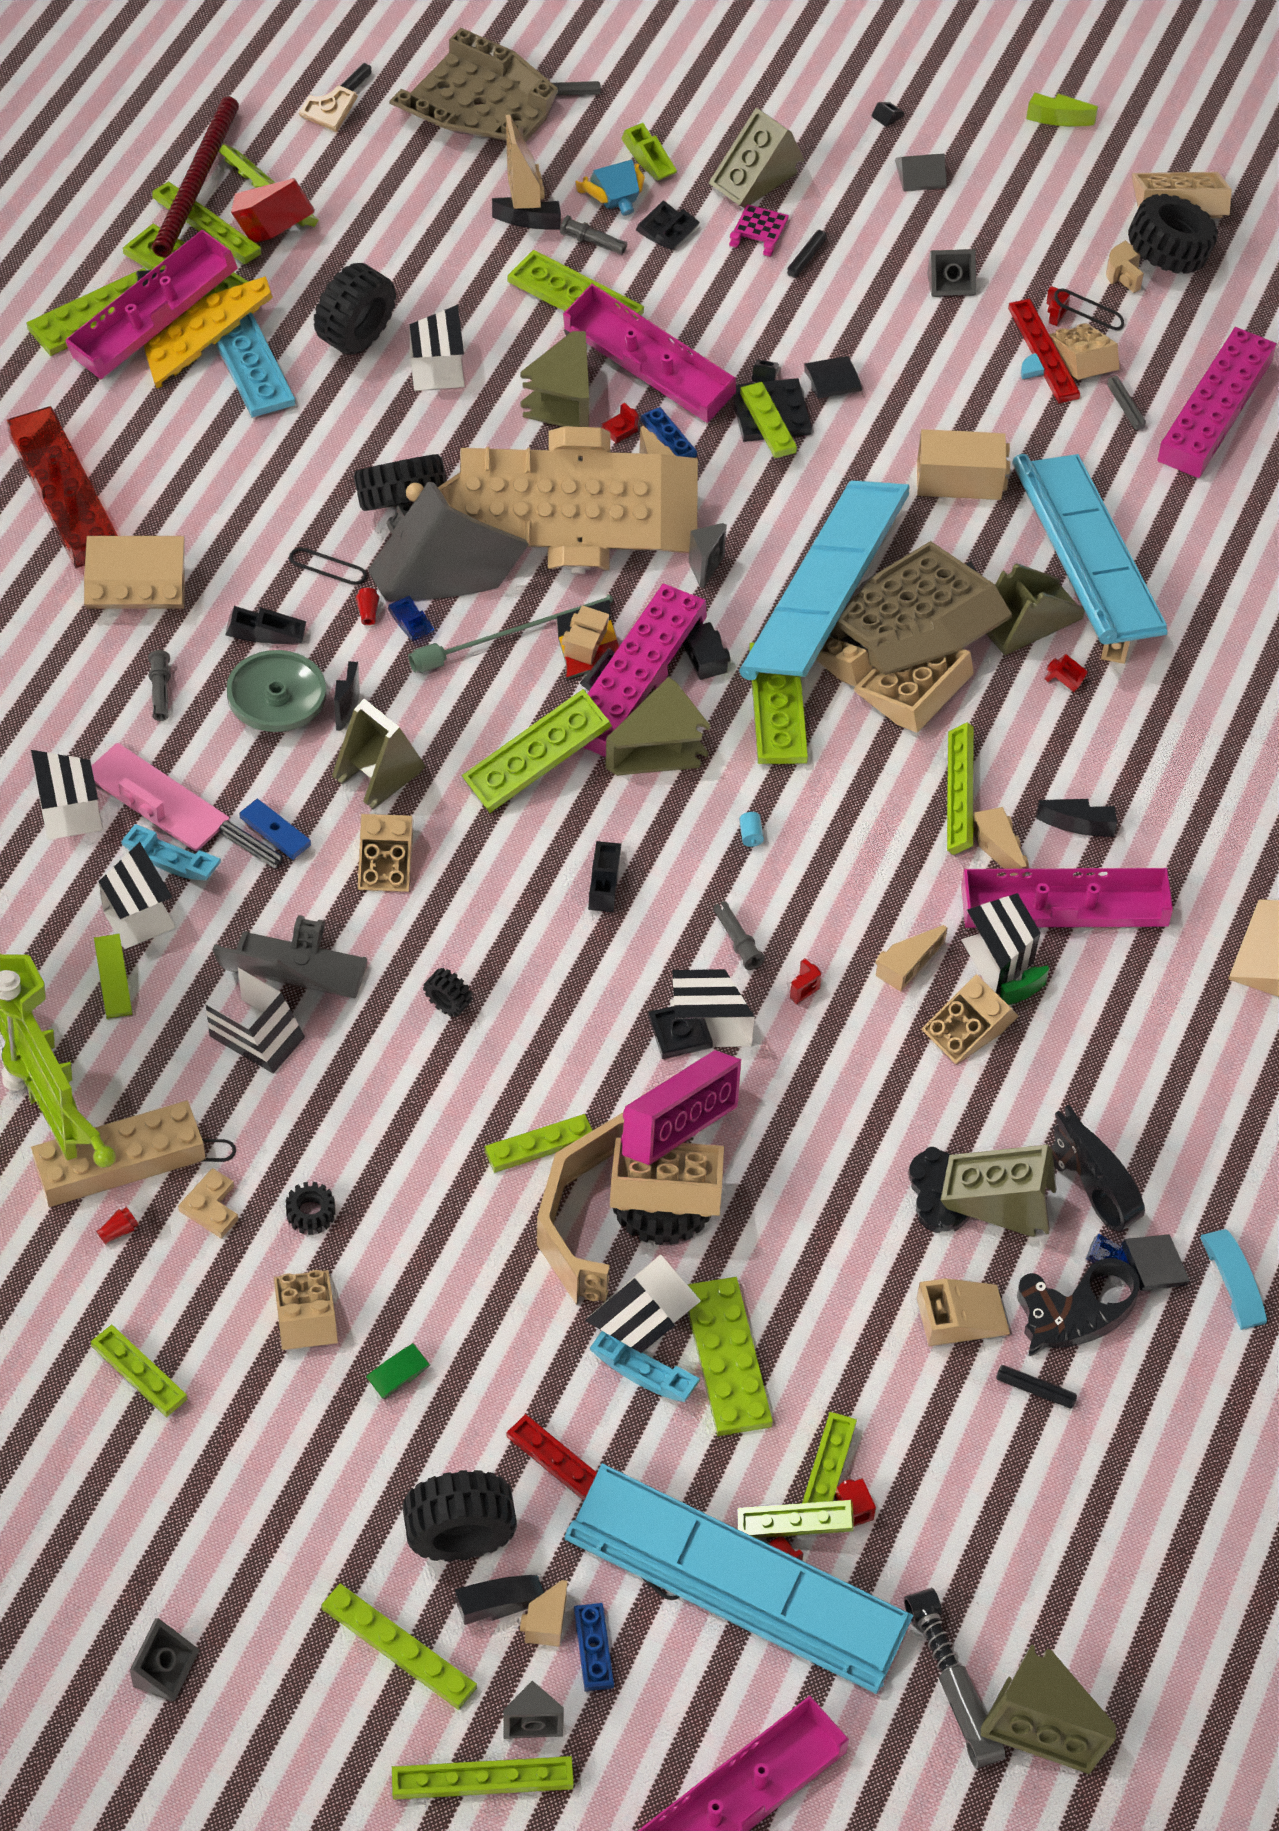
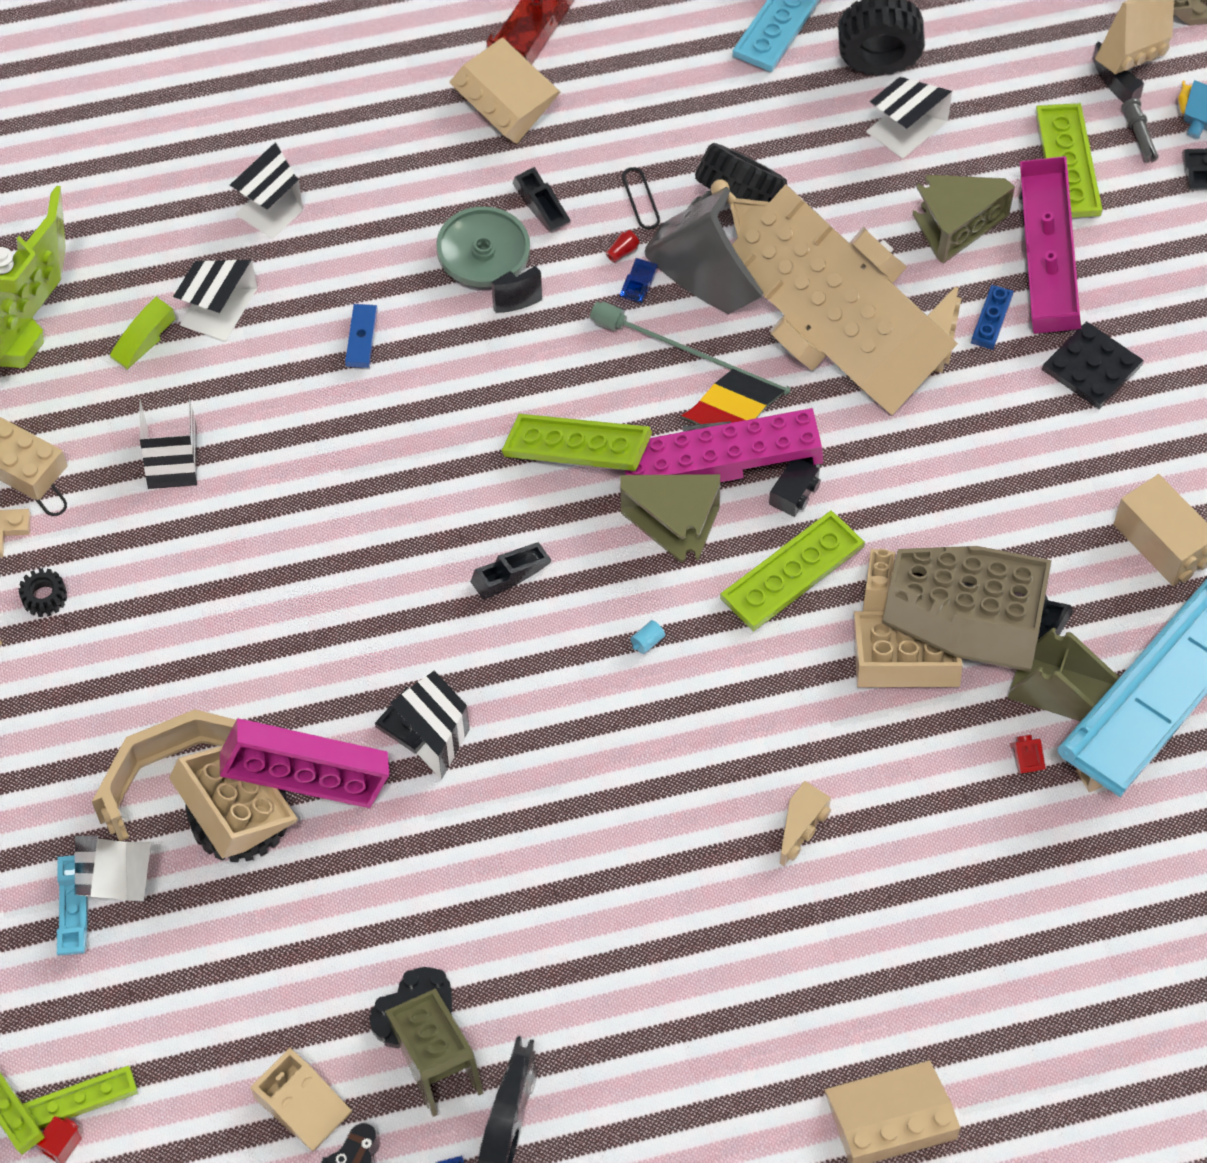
camera: 55 degrees right, 5 degrees up
(157, 797) = (325, 247): bright pink bracket -> none
(159, 677) = (434, 172): dark grey pin -> none
(170, 857) = (280, 289): medium azure slope -> none
(251, 844) = (336, 331): axle -> none
(297, 961) = (243, 429): dark grey panel -> none
(379, 751) = (479, 347): olive ladder -> none
(385, 852) = (402, 416): tan slope -> none
(448, 992) = (301, 542): black tyre -> none
(536, 1143) = (223, 696): lime plate -> none
(587, 630) = (734, 393): tan piece -> none
(623, 424) = (968, 279): red bracket -> none
(706, 551) = (888, 419): dark grey slope -> none
(728, 1358) = (131, 958): lime plate -> none
(743, 943) = (529, 706): dark grey pin -> none
(764, 371) = (1129, 333): black slope -> none
(768, 420) = (1071, 368): lime plate -> none
(806, 982) = (527, 776): red bracket -> none
(826, 580) = (941, 516): medium azure piece -> none
(832, 377) = (1171, 382): black slope -> none
(908, 957) = (620, 832): tan slope -> none
(960, 789) = (828, 755): lime plate -> none
(969, 1020) = (598, 918): tan slope -> none
(1004, 942) = (687, 888): sticker -> none
(1030, 983) = (675, 938): green slope -> none
(1064, 900) = (784, 908): dark pink piece -> none
(1078, 816) = (883, 863): black slope -> none

